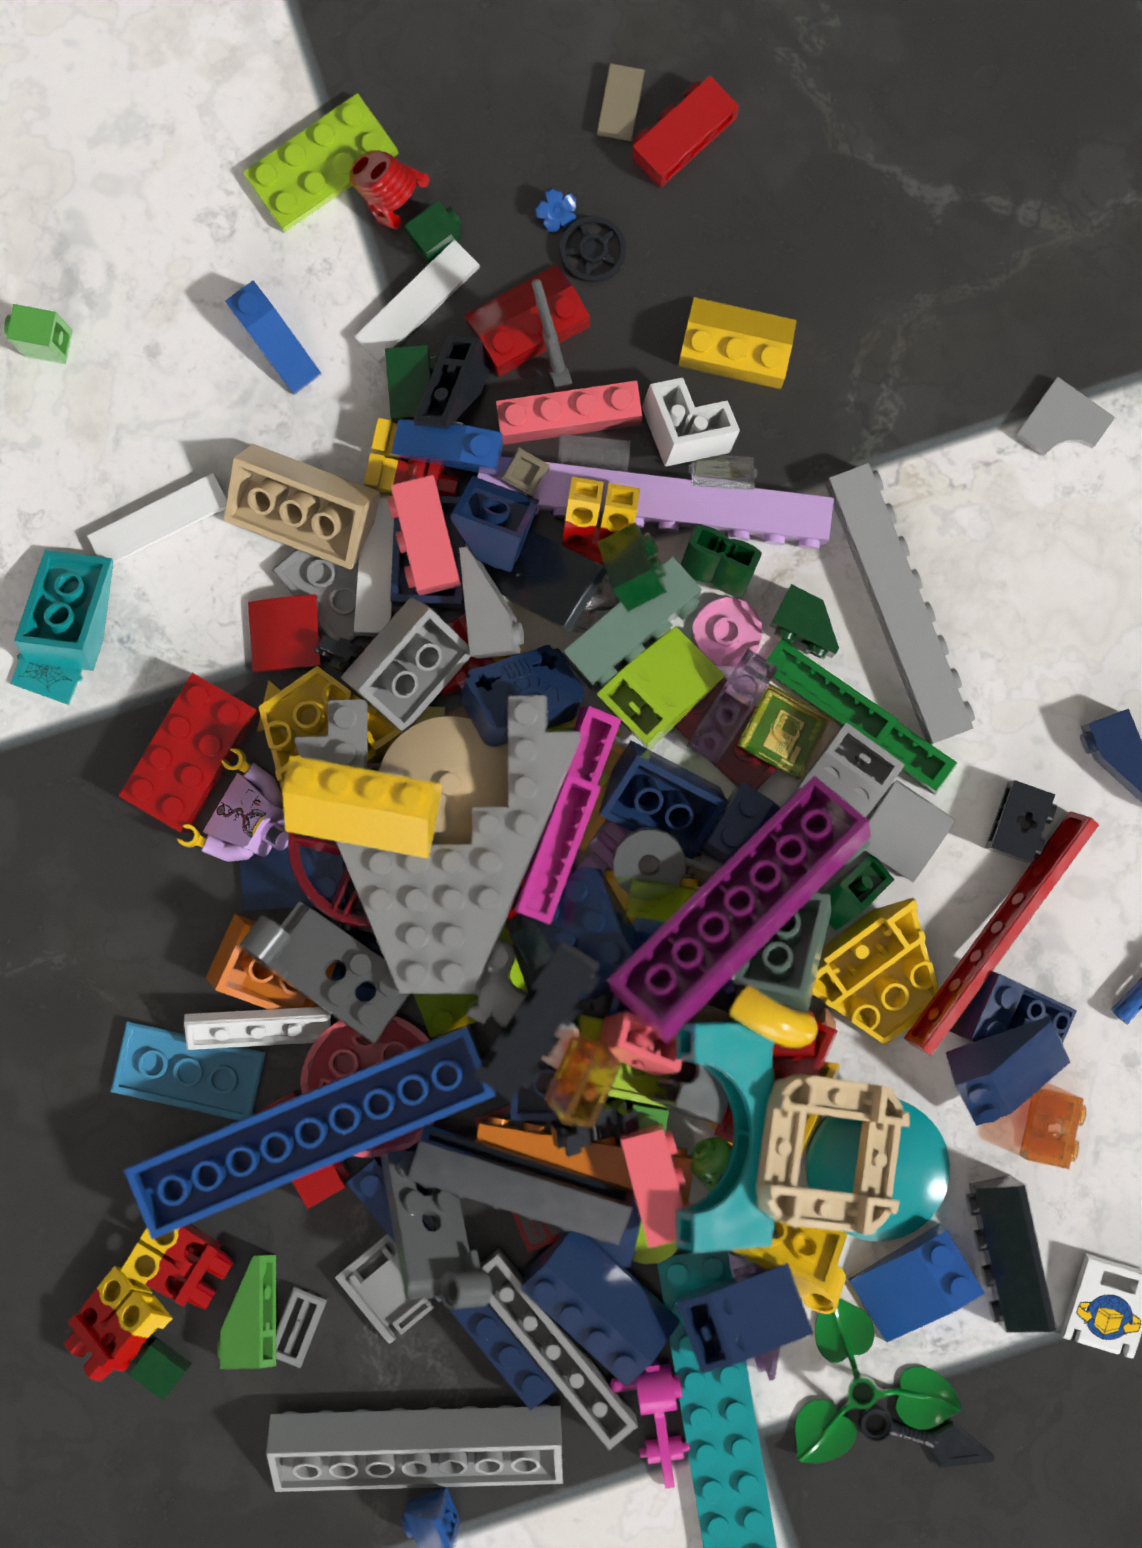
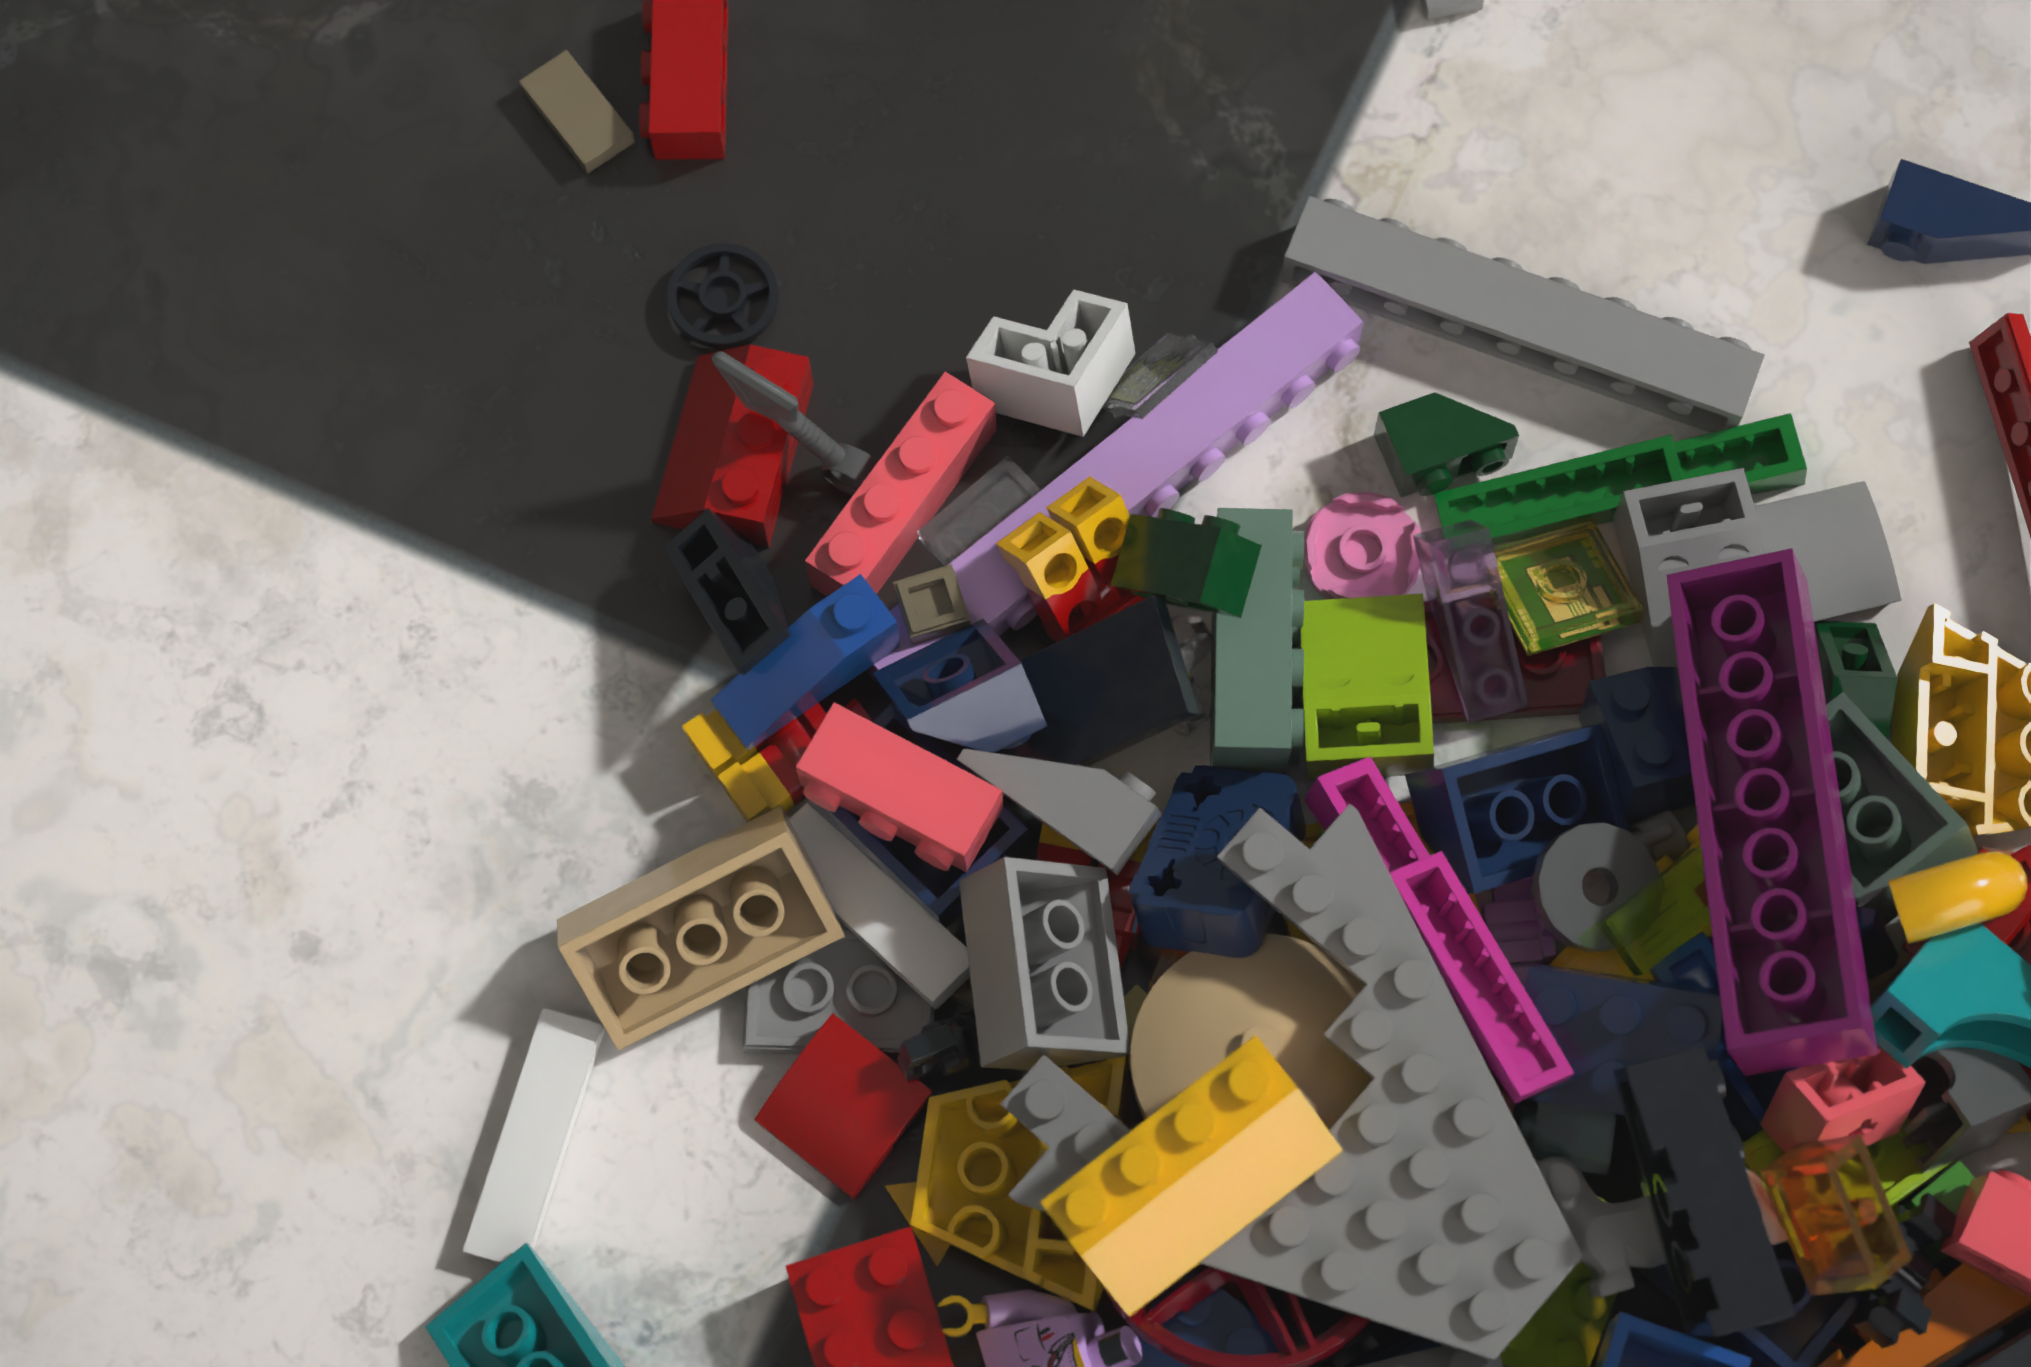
camera: 50 degrees left, 15 degrees down
(38, 333) = (140, 1062): bright green brick -> none
(273, 337) = (443, 772): blue slope -> none
(317, 162) = (286, 523): lime plate -> none
(385, 184) = (395, 456): red piece -> none
(407, 377) = (671, 651): dark green brick -> none
(417, 301) = (577, 561): white tile -> none
(434, 230) = (512, 458): dark green brick -> none
(556, 209) = (632, 293): blue plant -> none
(720, 560) = (1273, 468): dark green brick -> none
(737, 343) = (1010, 228): yellow slope -> none
(1017, 801) = (1934, 406): black brick -> none

